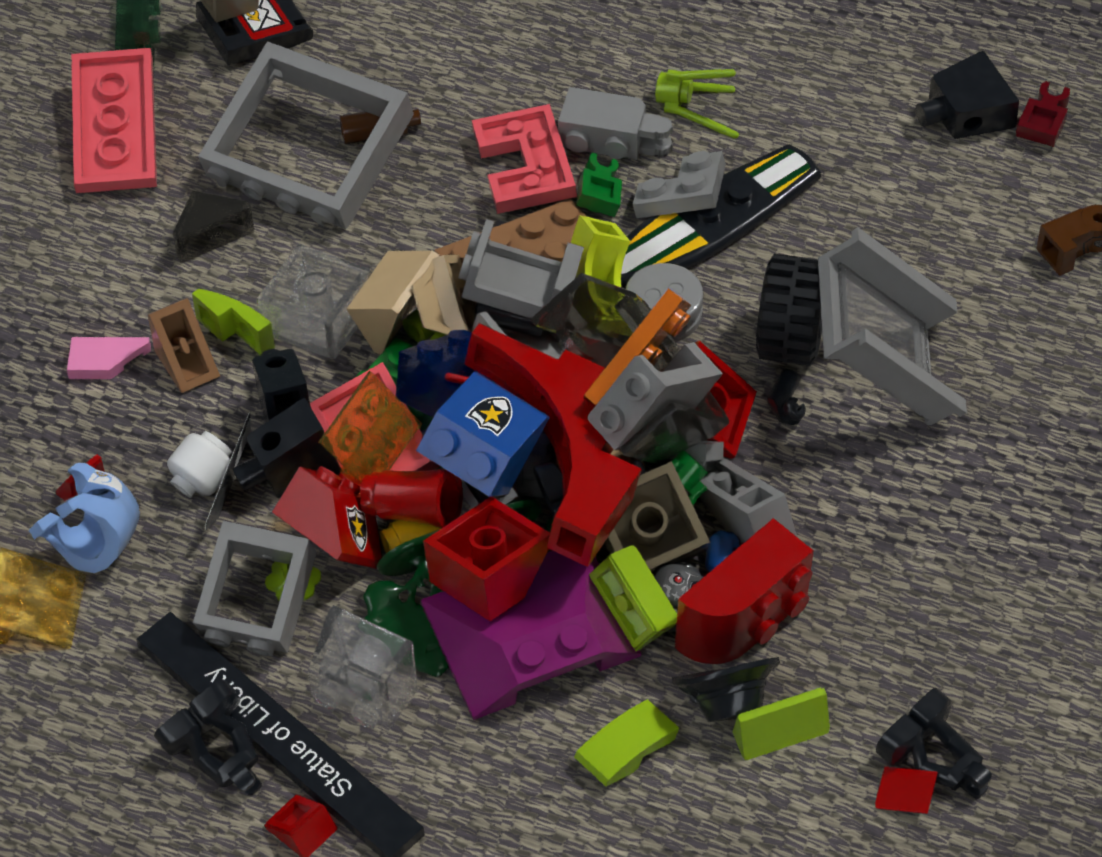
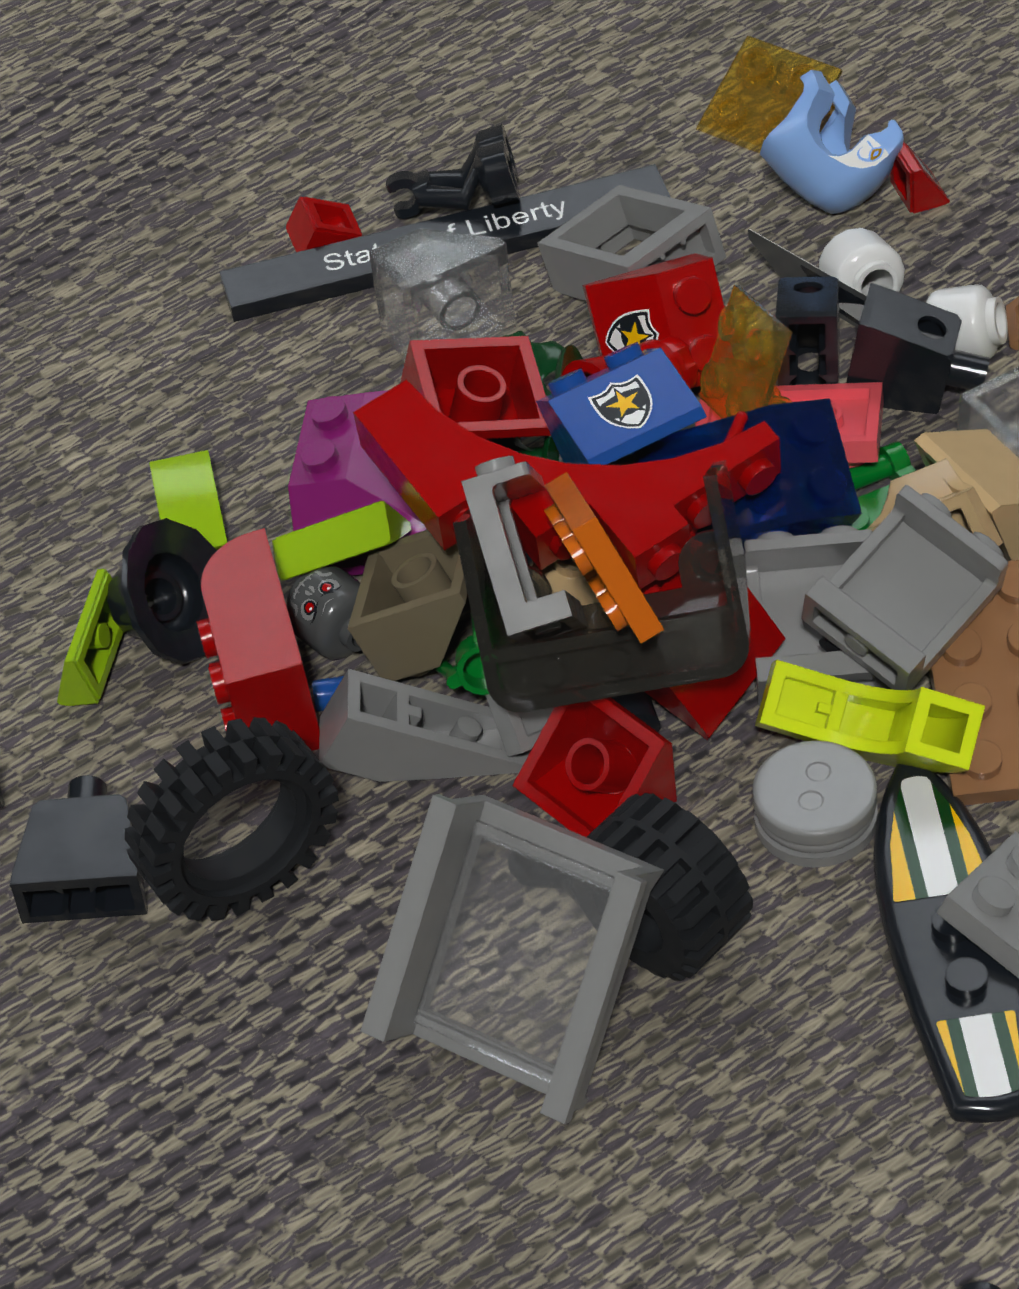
camera: 125 degrees right, 5 degrees down
(227, 390) = (982, 317): none -> white head
(907, 487) = (202, 781): none -> black tyre
(944, 624) = (77, 858): none -> black torso

